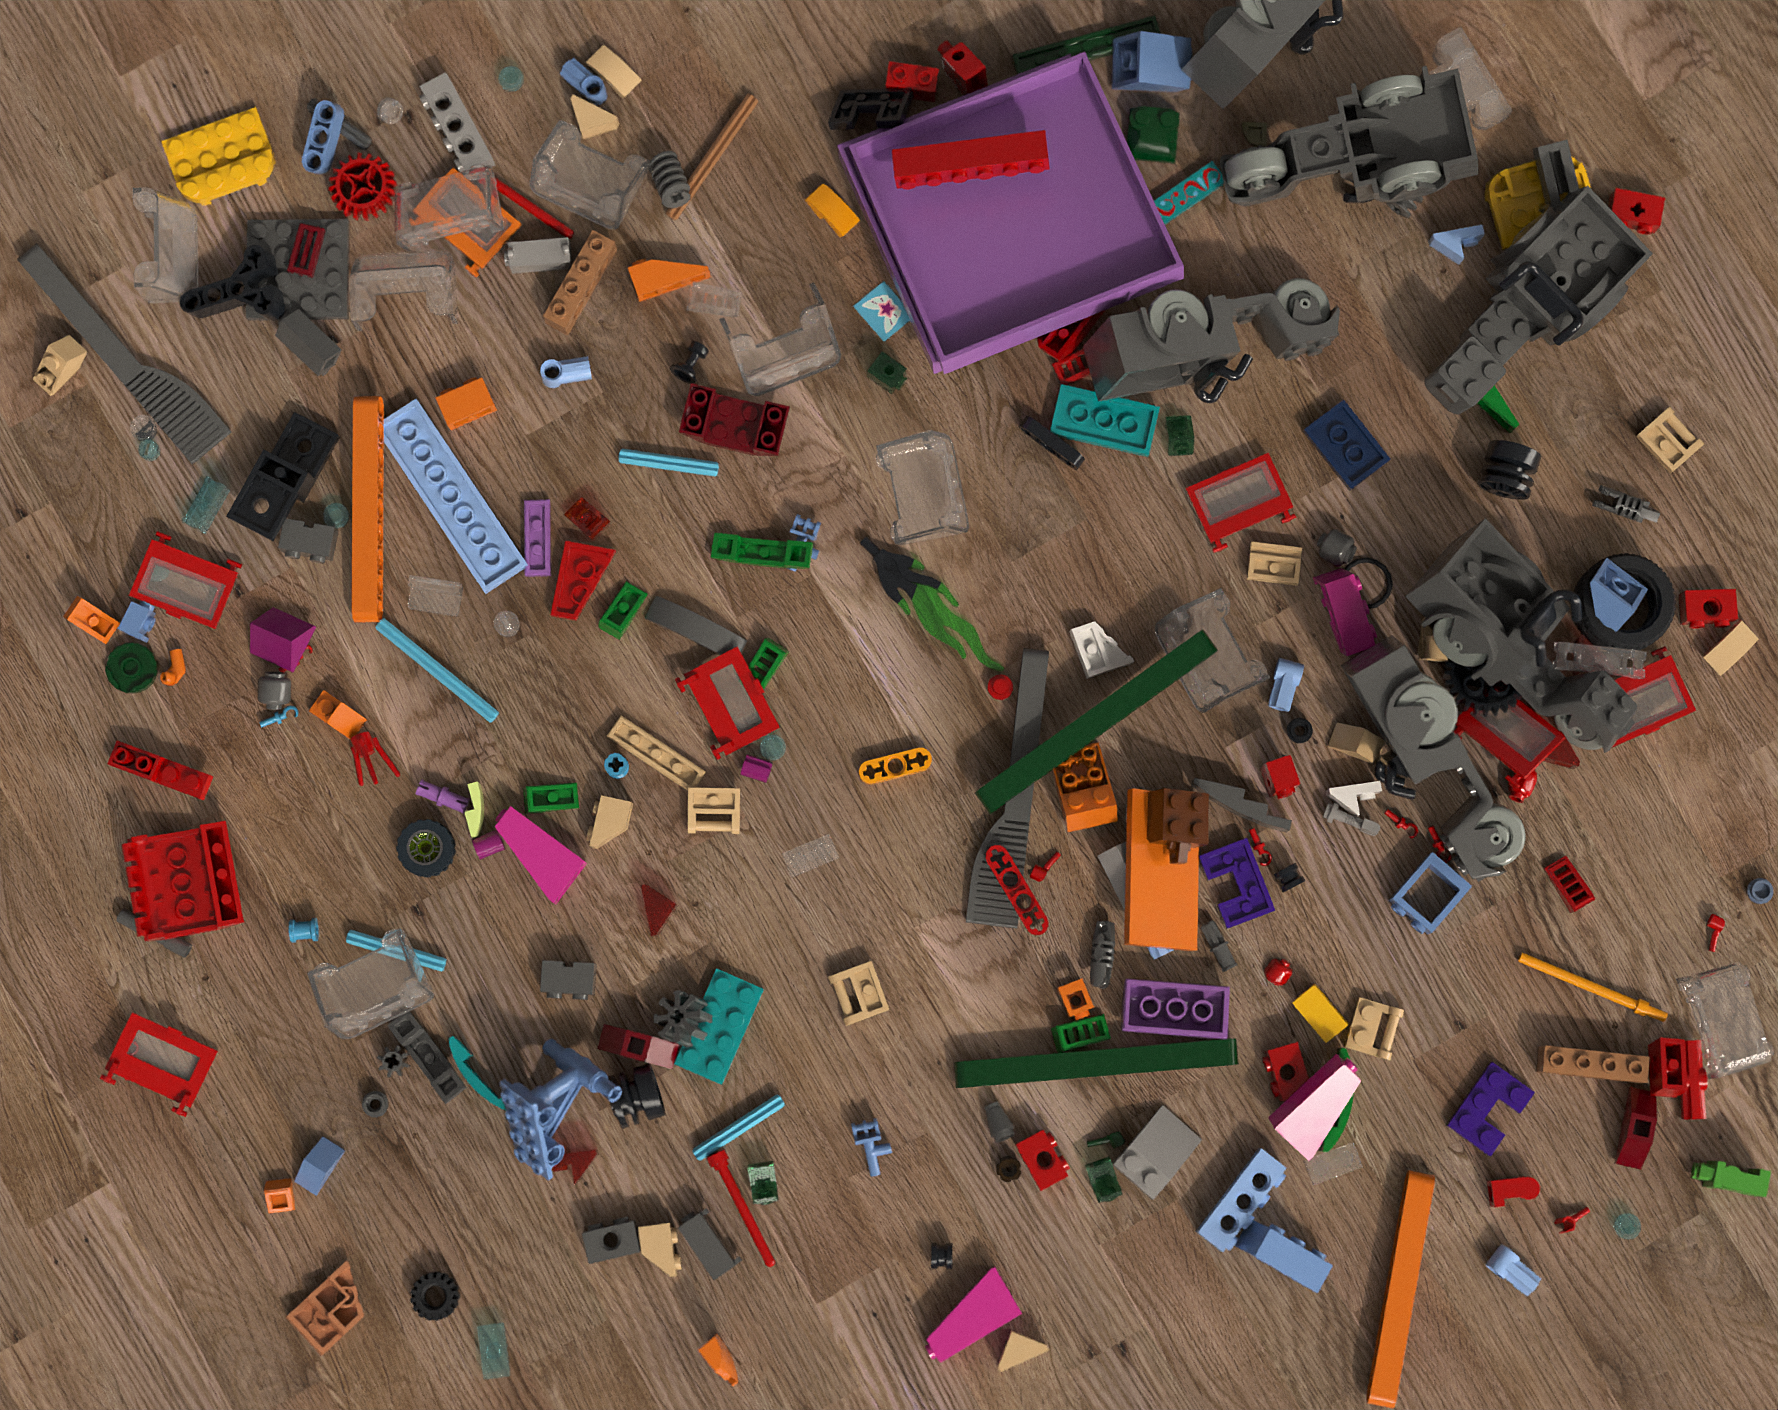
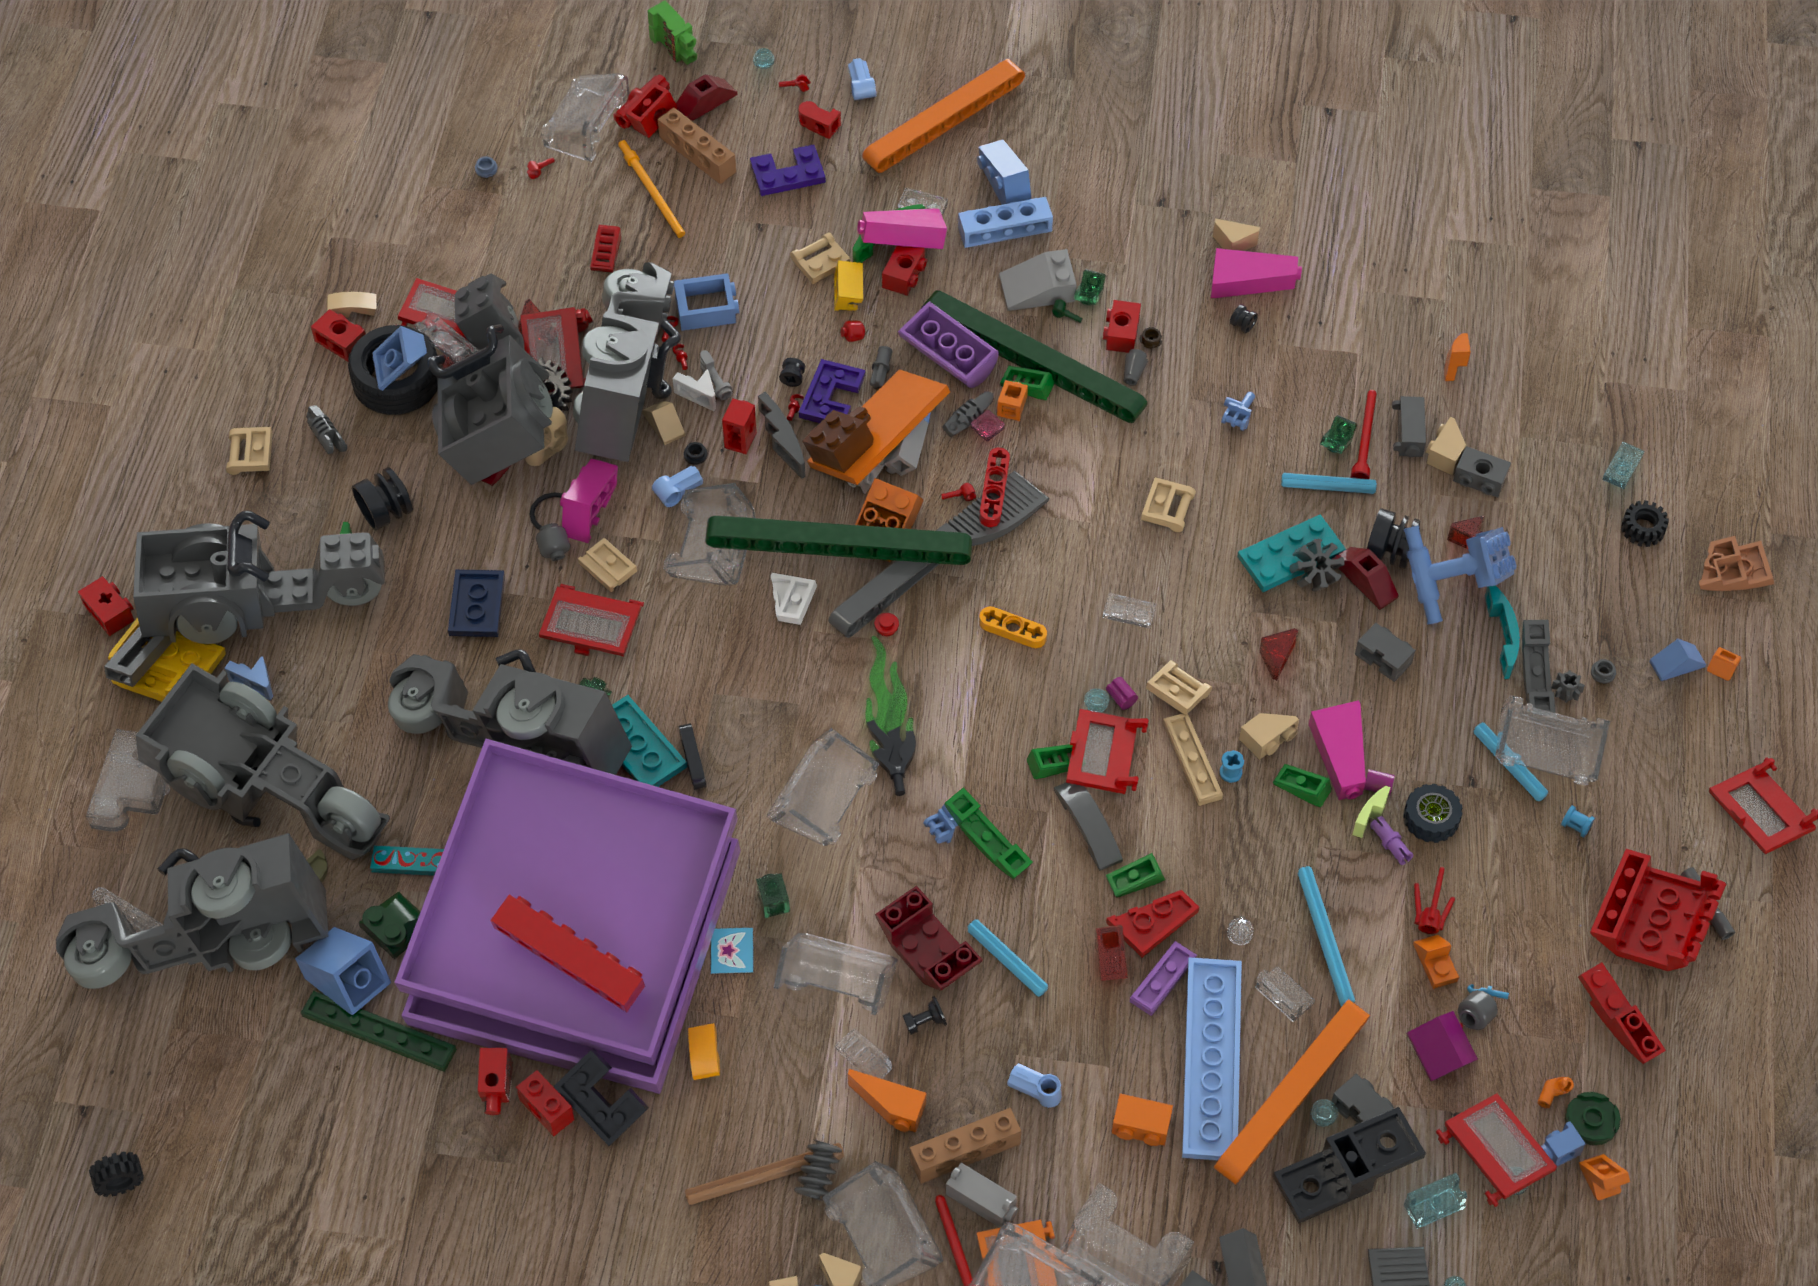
camera: 140 degrees left, 25 degrees down
(1076, 955) = (987, 425): none -> clear pink plate

